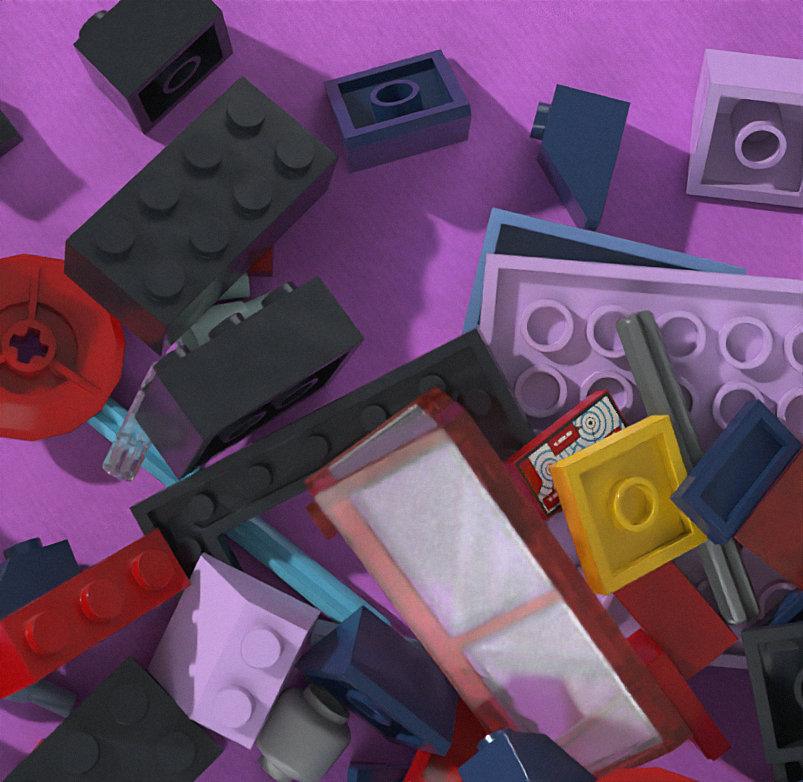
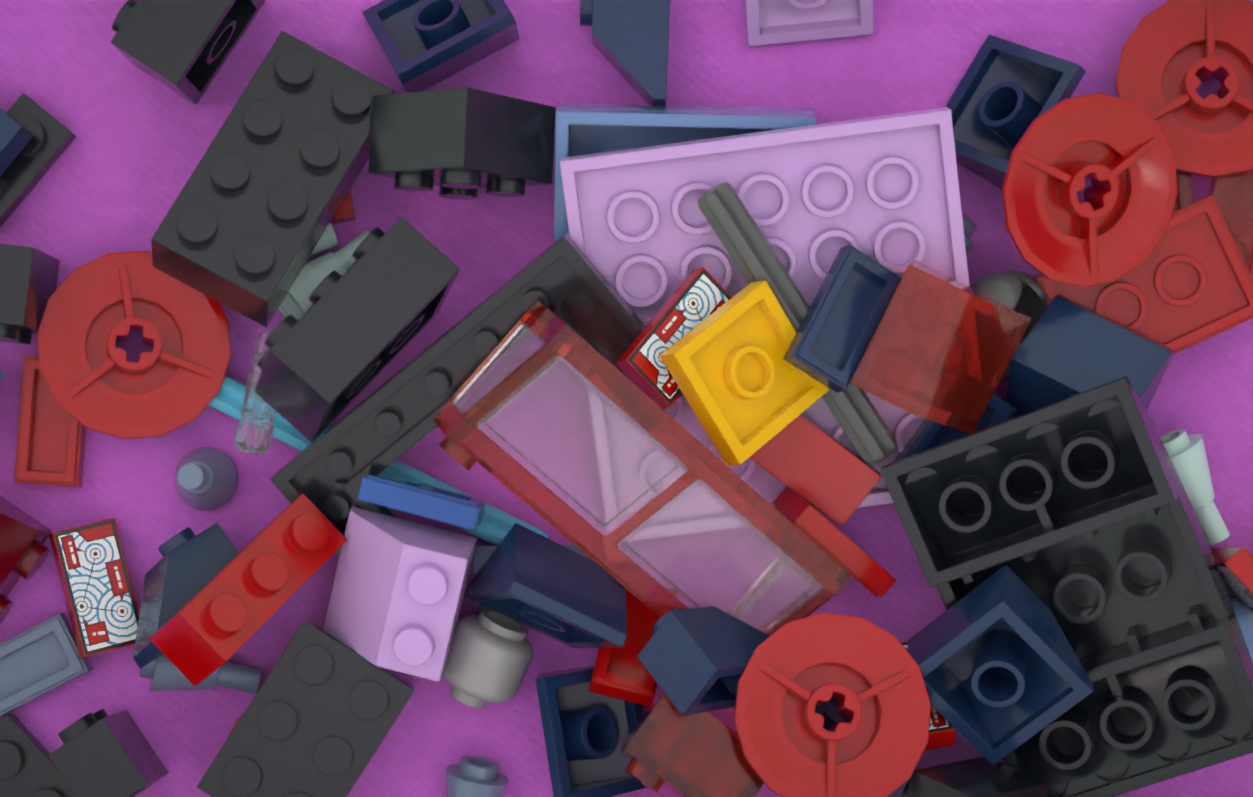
camera: 10 degrees left, 5 degrees up
(67, 494) = (206, 478): none -> sand blue cone
(275, 562) = (423, 501): none -> blue tile
(393, 217) = (462, 142): none -> black brick

